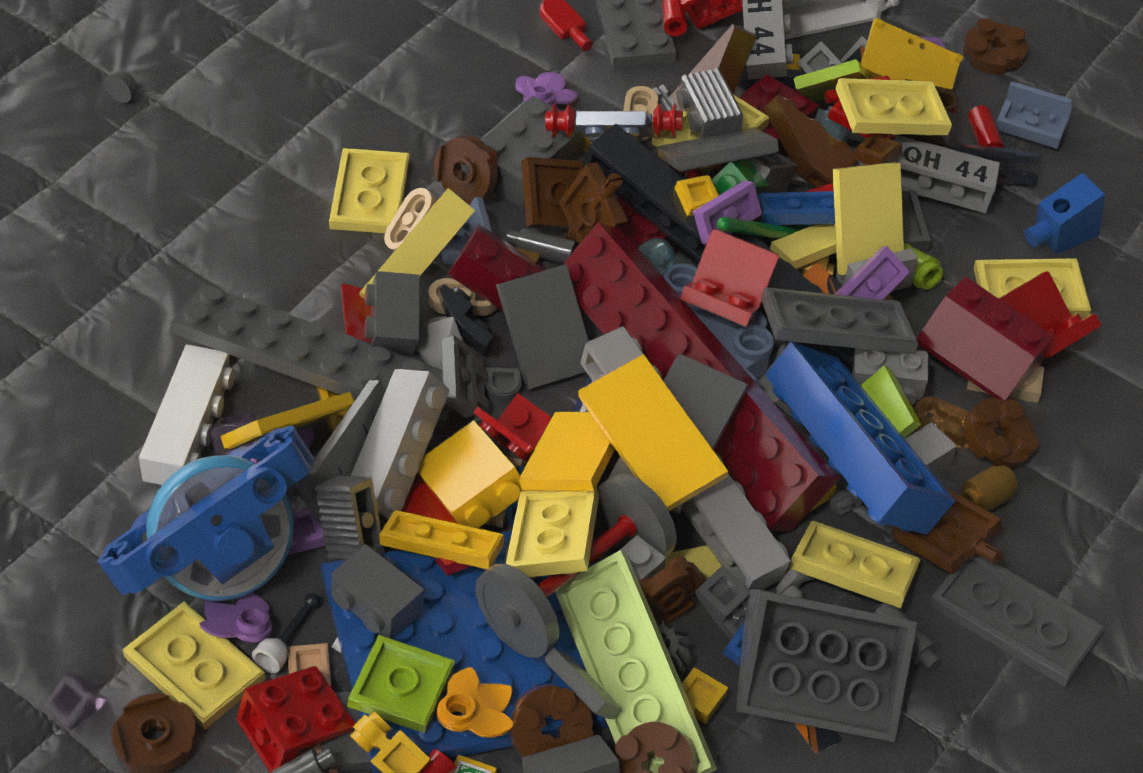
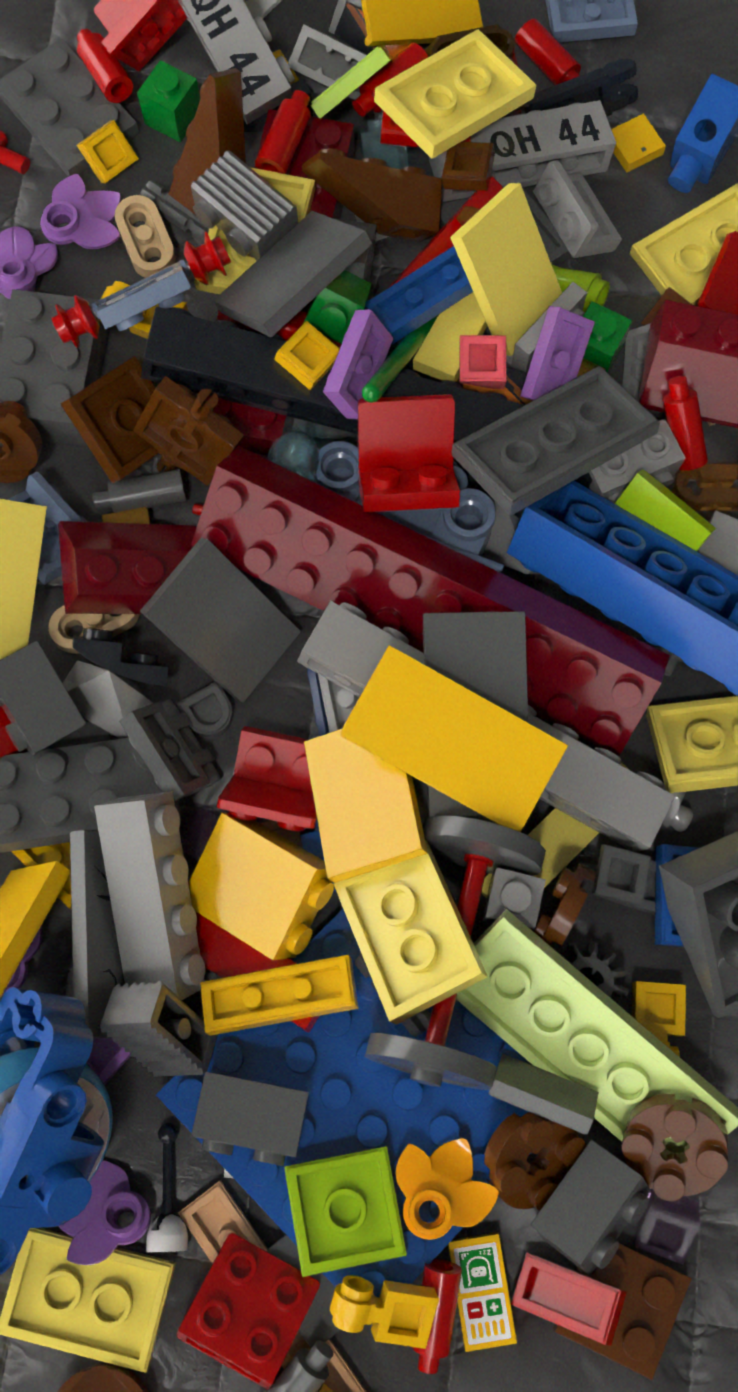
camera: 25 degrees left, 25 degrees up
(604, 85) = (86, 212): none -> medium lavender plate
(646, 58) = (107, 151): none -> yellow tile
(699, 41) = (169, 100): none -> green brick
(766, 85) = (284, 134): none -> red cylinder
(819, 263) = (482, 360): none -> coral slope
(917, 296) = (606, 336): none -> green brick
(941, 363) = (685, 422): none -> red cylinder
(944, 221) = (575, 212): none -> light grey bracket
(1017, 207) = (637, 143): none -> yellow tile

